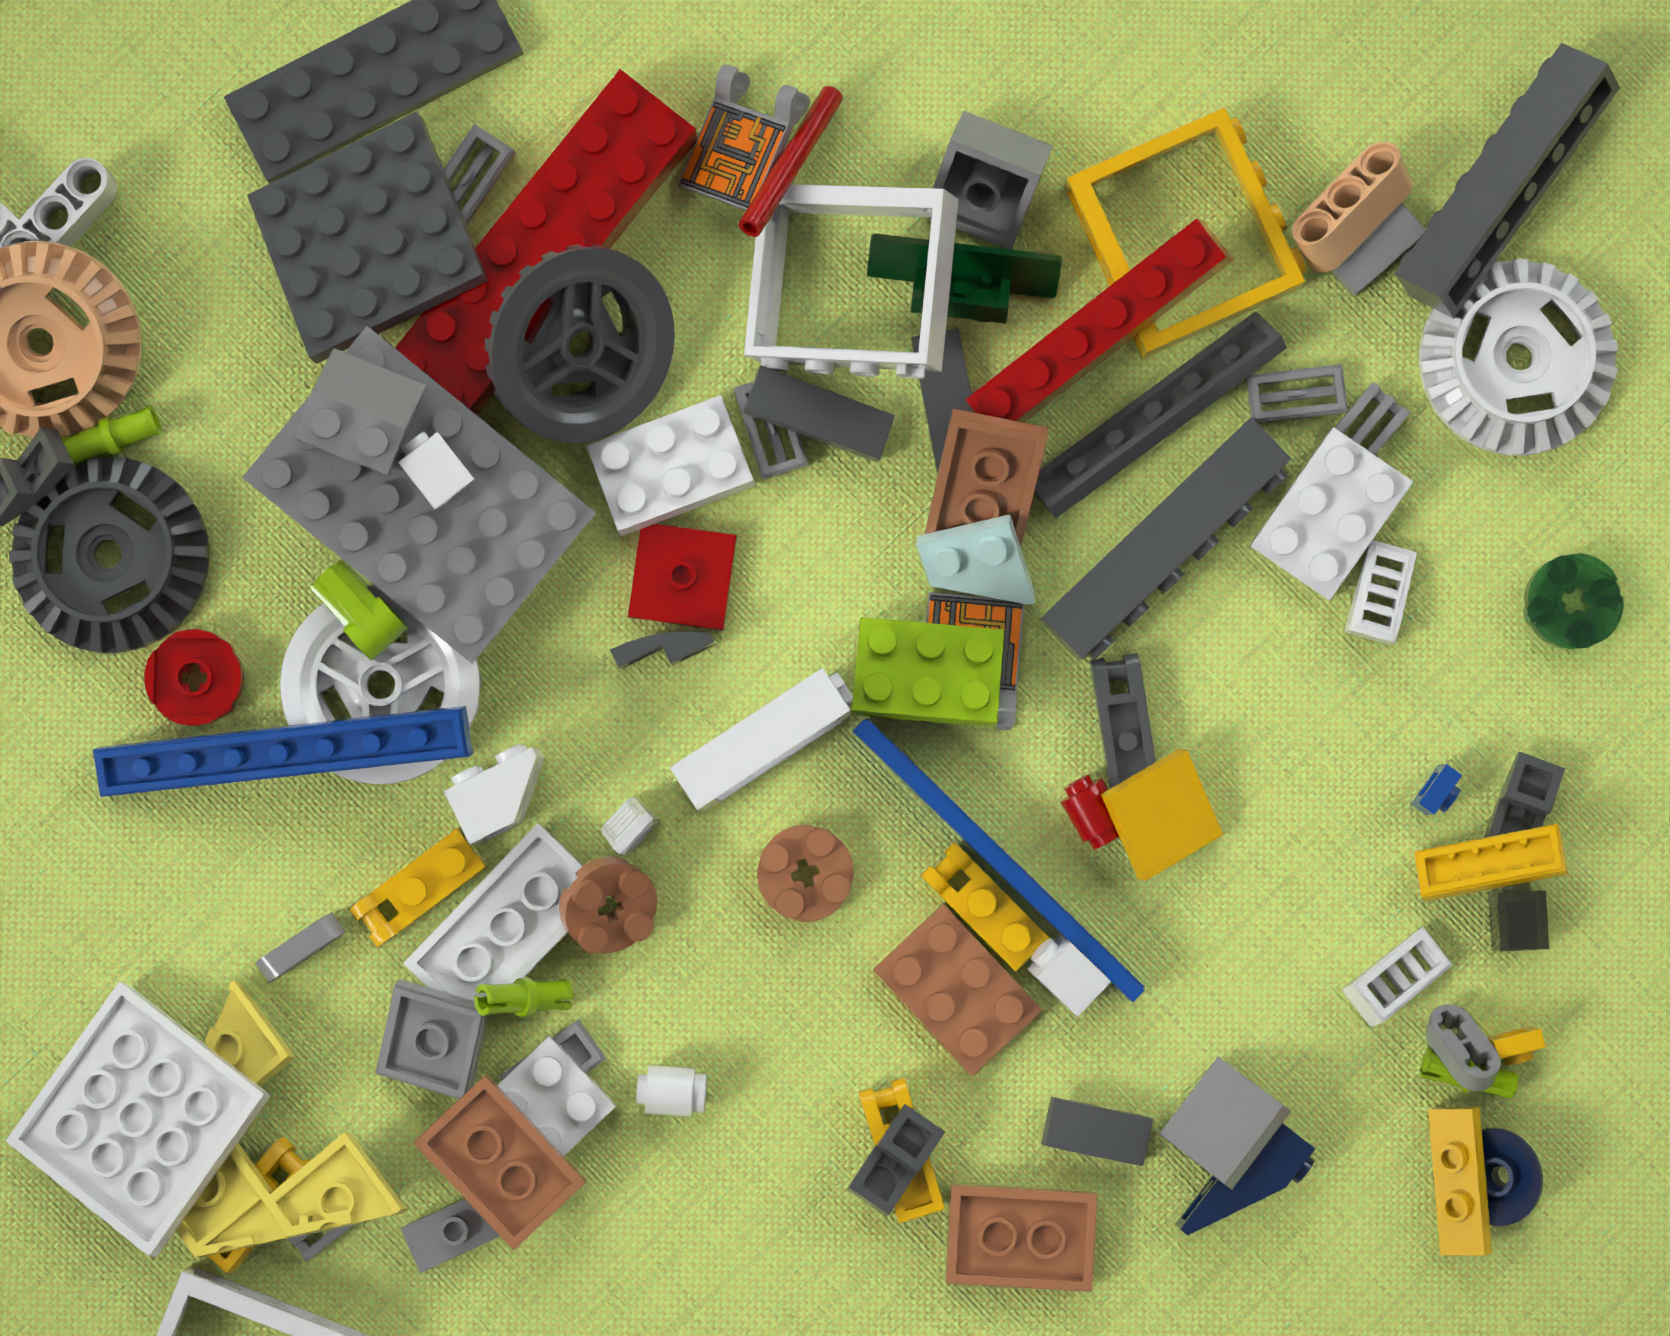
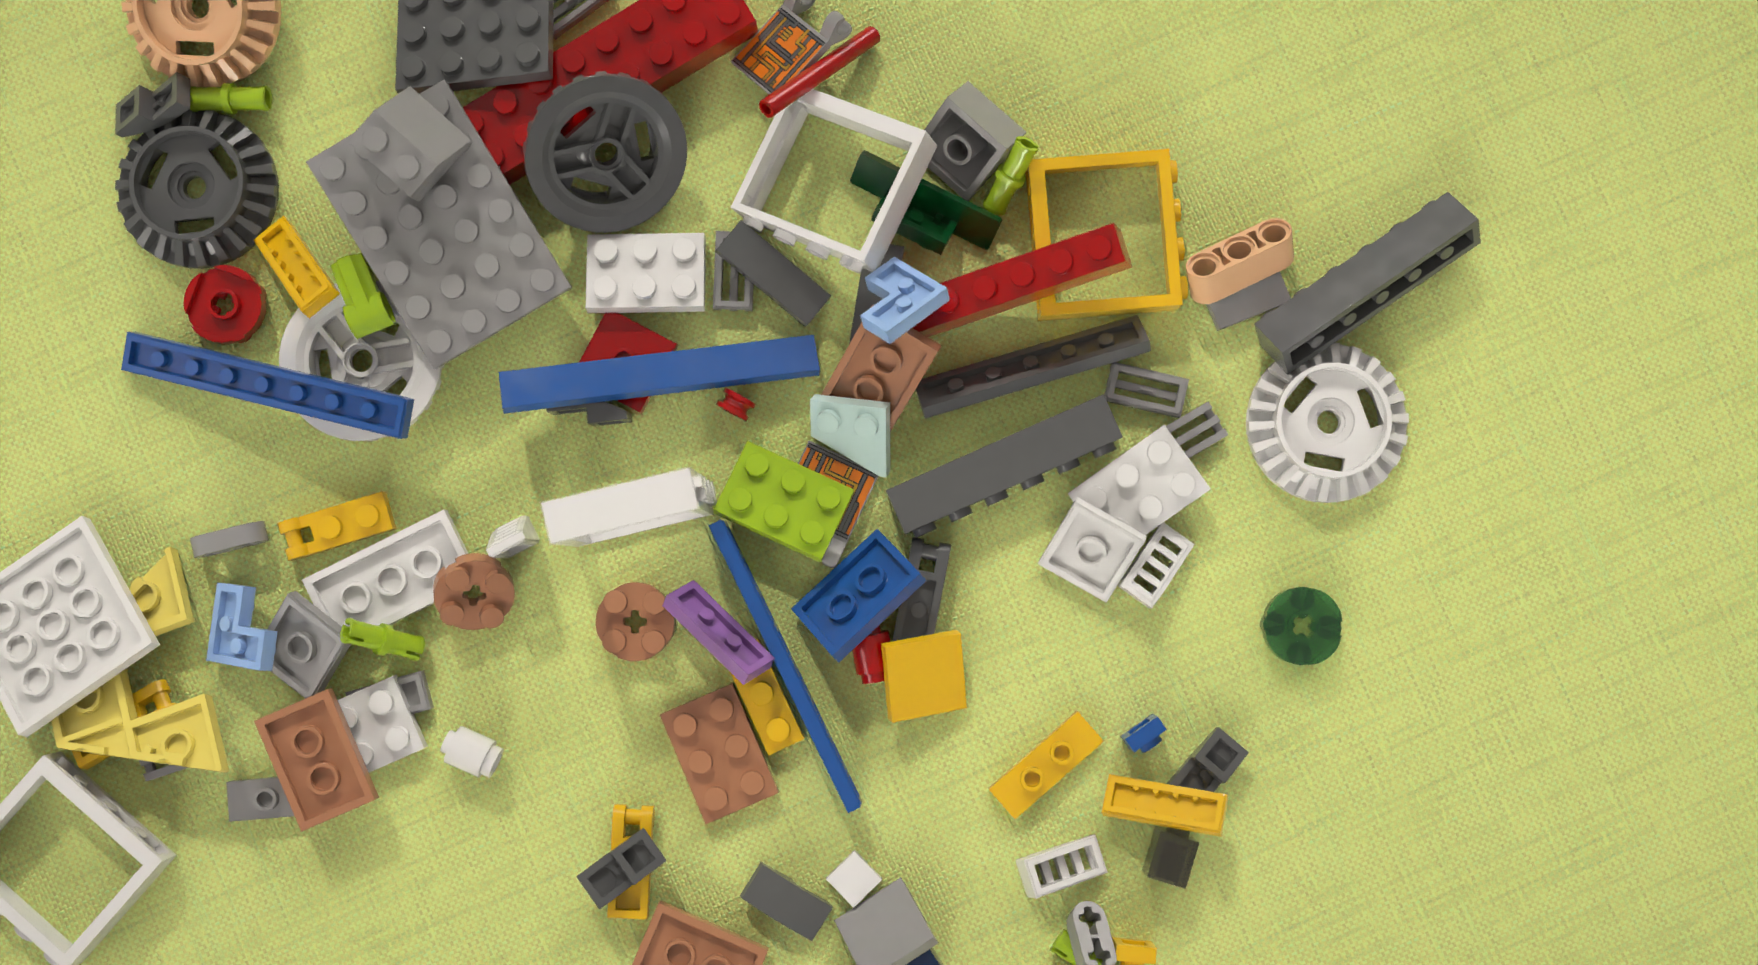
camera: 25 degrees right, 0 degrees up
(265, 603) = (296, 267): none -> yellow plate
(344, 1057) = (231, 635): none -> light blue plate
(435, 469) = (453, 207): white brick -> none
(495, 798) = (416, 479): white slope -> none
(731, 576) = (658, 374): none -> blue tile
(830, 580) = (735, 404): none -> red bush
(908, 849) = (718, 632): none -> medium lavender plate
(991, 391) = (905, 301): none -> light blue plate
(1053, 203) = (1010, 175): none -> lime pin
(1053, 748) = (858, 595): none -> blue plate
(1067, 974) = (806, 773): white brick -> none
(1164, 1077) = (854, 878): none -> white tile
(1302, 600) = (1092, 549): none -> white tile
(1337, 867) = (1045, 764): none -> yellow plate

